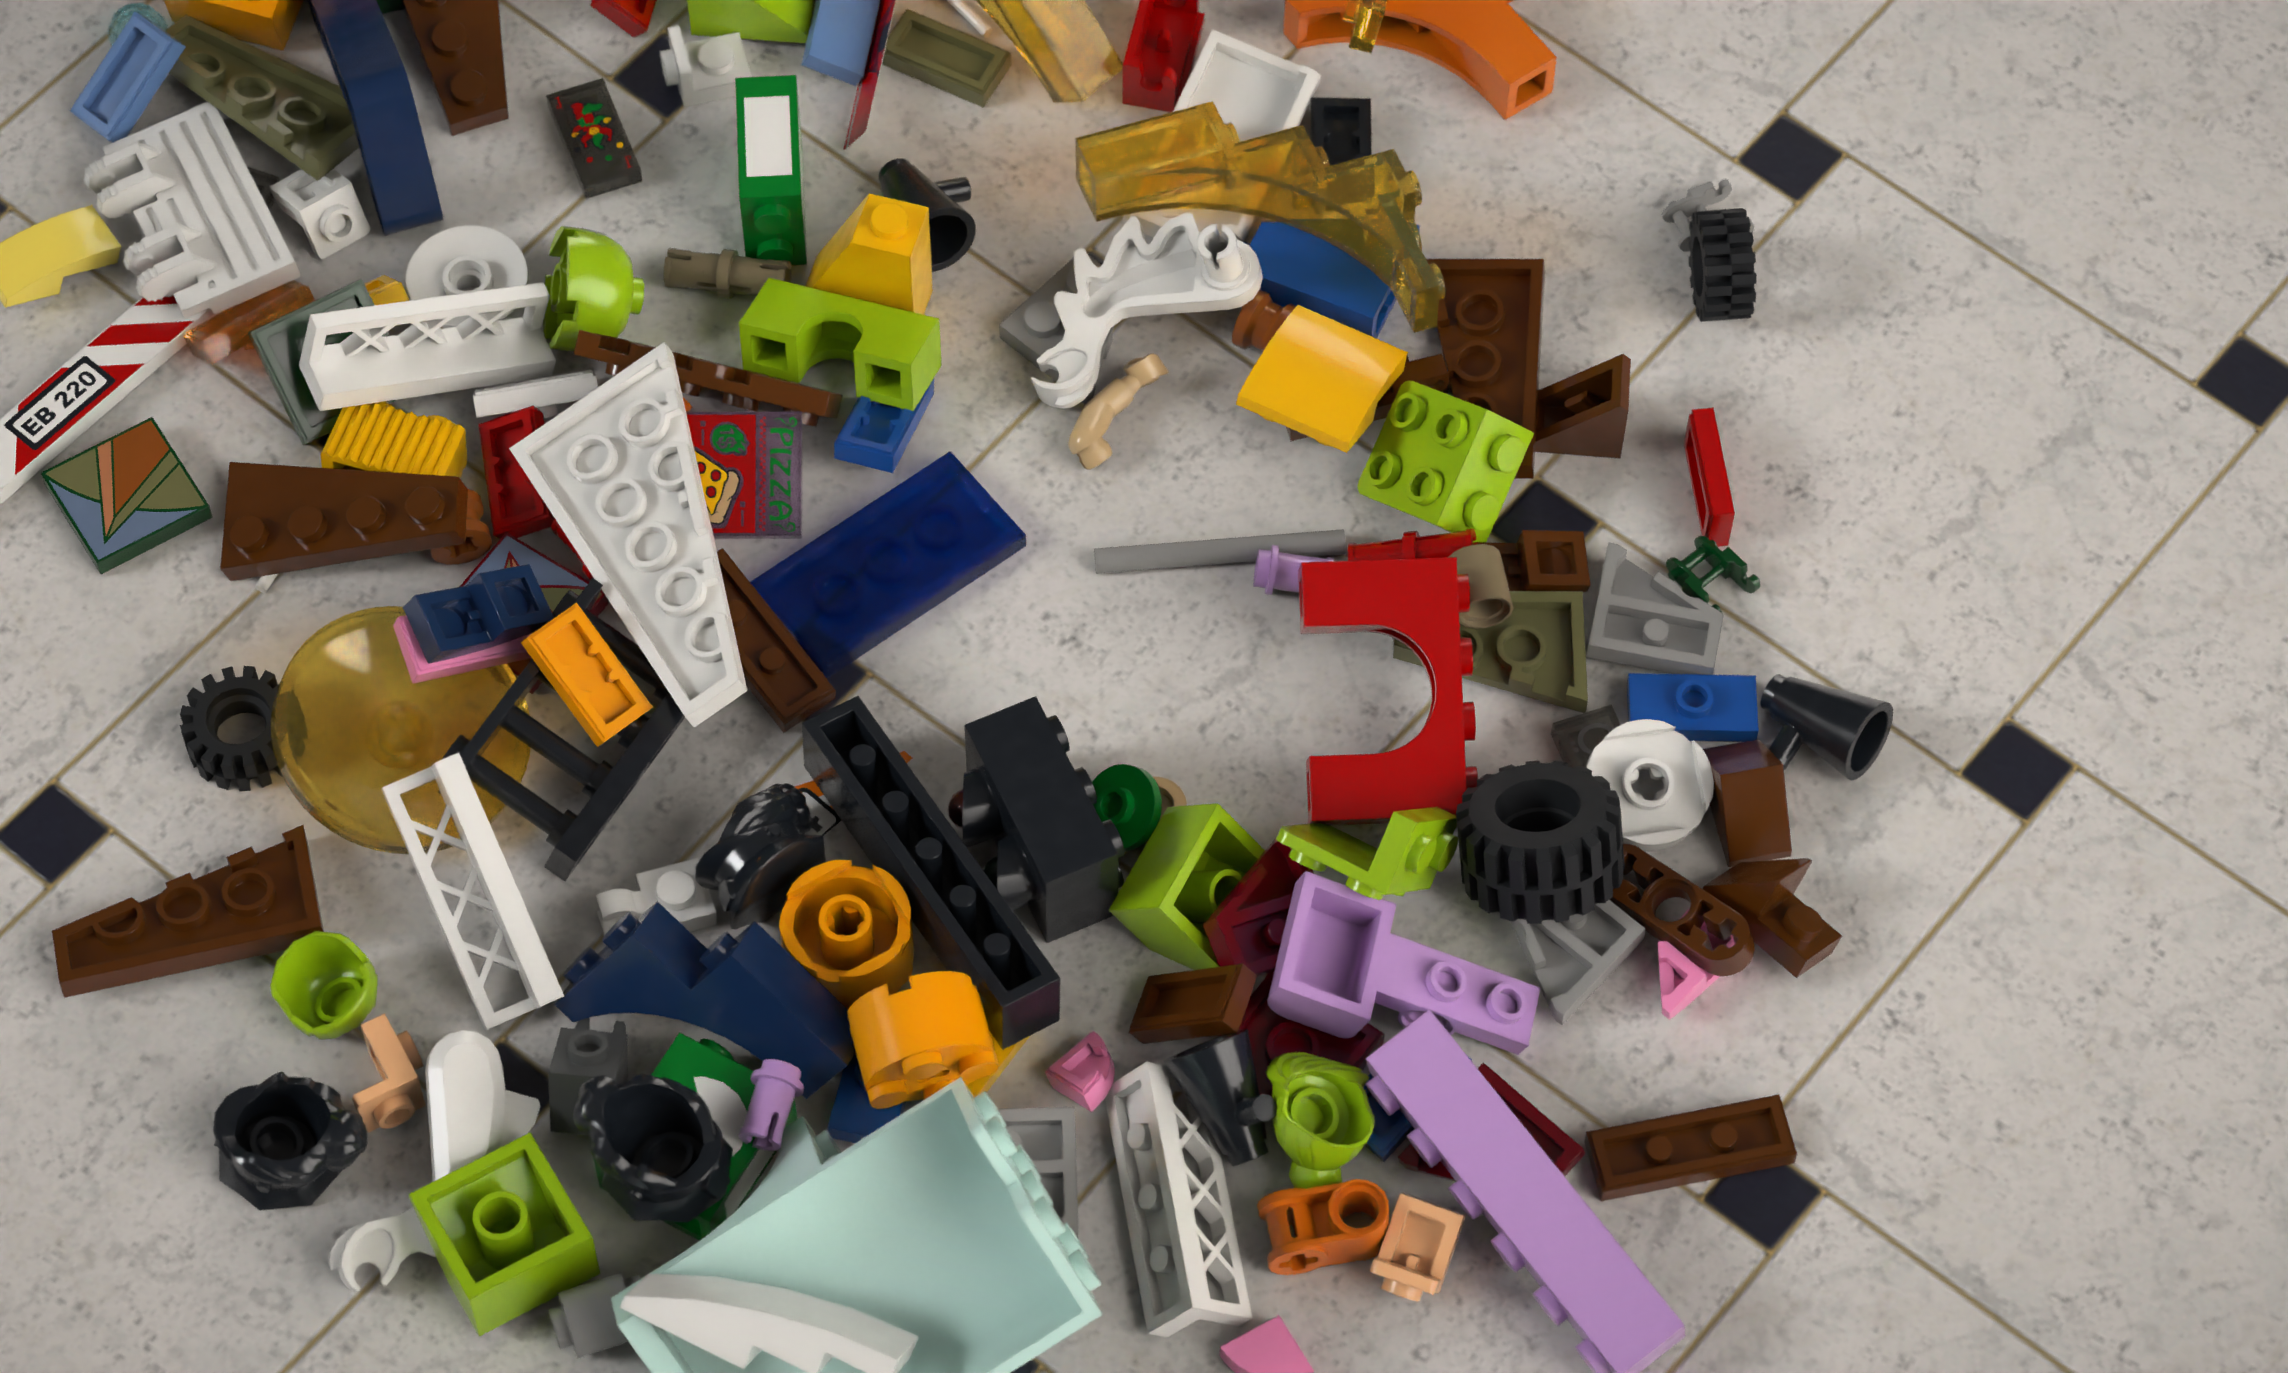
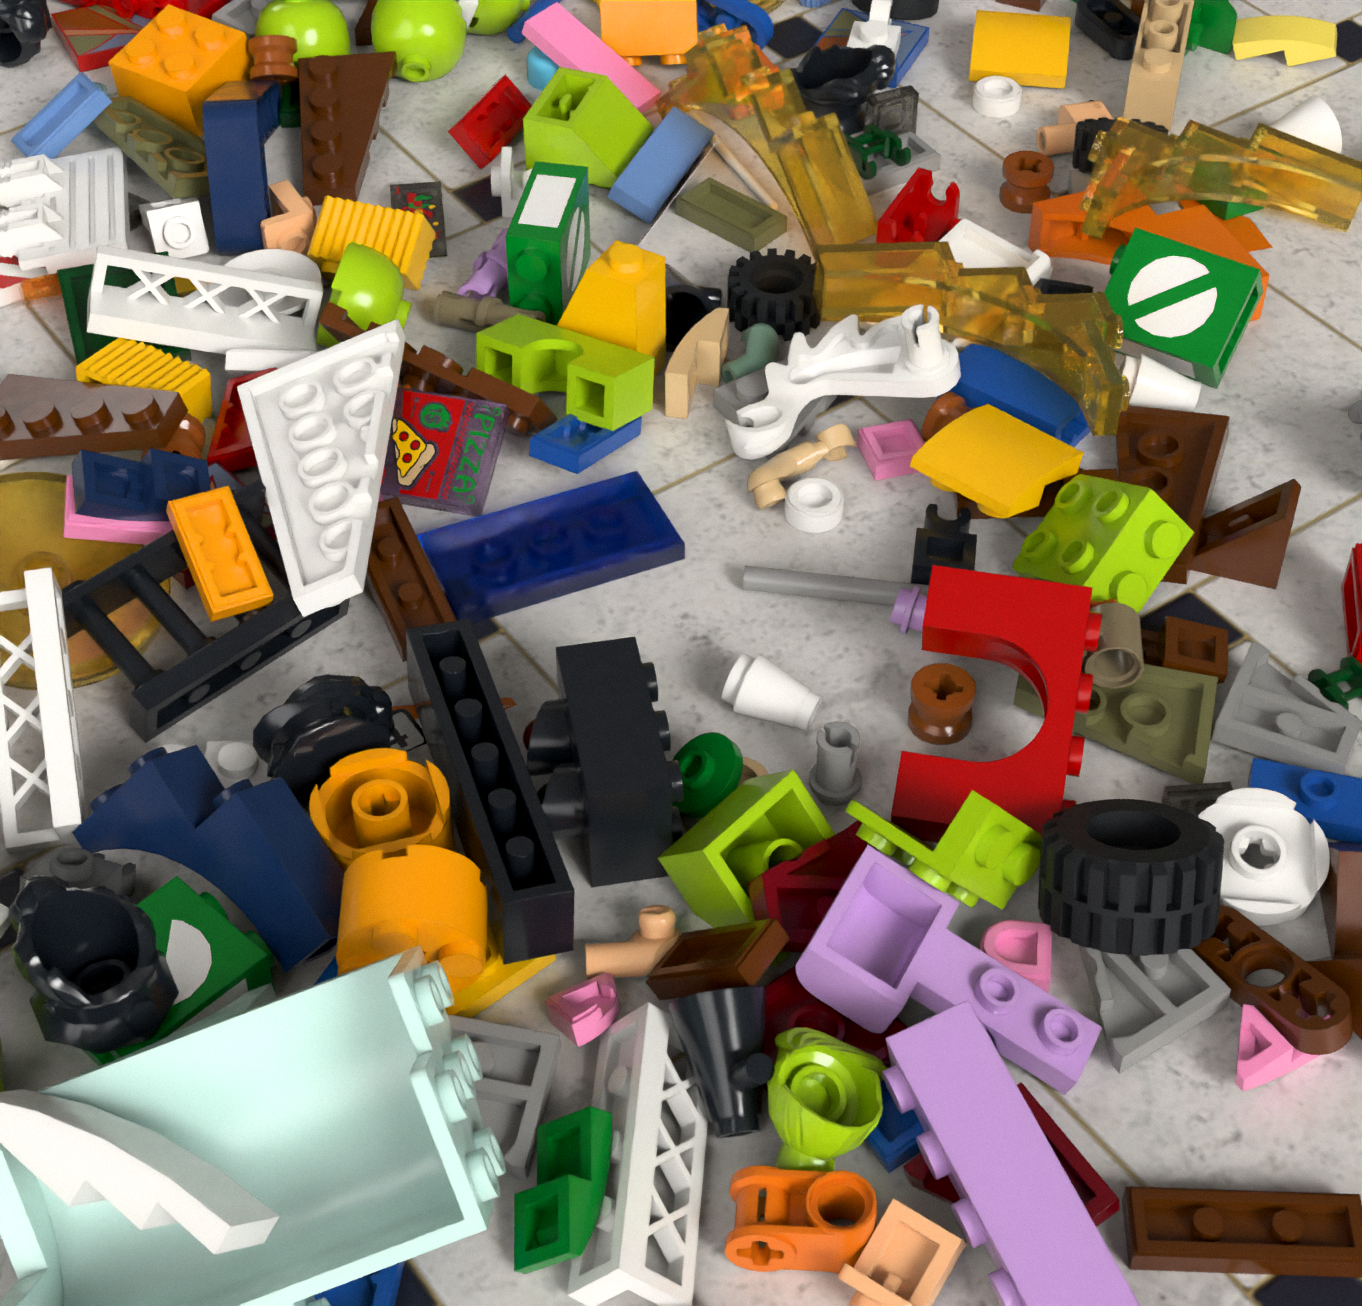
camera: 15 degrees right, 15 degrees down
(462, 178) = (291, 222): none -> light nougat bracket
(554, 194) = (394, 232): none -> yellow brick
(709, 198) = (488, 272): none -> lavender pin
(771, 1103) = (233, 953): lavender pin -> none
(973, 290) = (696, 362): none -> tan slope
(1024, 203) = (773, 292): none -> black tyre
(1034, 264) = (760, 349): none -> sand green arm
(1115, 1002) = (640, 952): none -> light nougat arm
(1123, 1243) = (572, 1175): none -> green slope
(1141, 453) = (814, 505): none -> white tile
(1160, 700) = (769, 693): none -> white cone
(1205, 362) = (889, 448): none -> bright pink tile
(1244, 776) = (835, 775): none -> light grey pin
(1287, 491) = (943, 544): none -> black plate
(1319, 690) = (941, 703): none -> dark orange wheel
(1453, 927) = (1022, 948): none -> bright pink tile
(1459, 226) = (1158, 385): none -> white cone
(1464, 122) = (1181, 304): none -> green brick

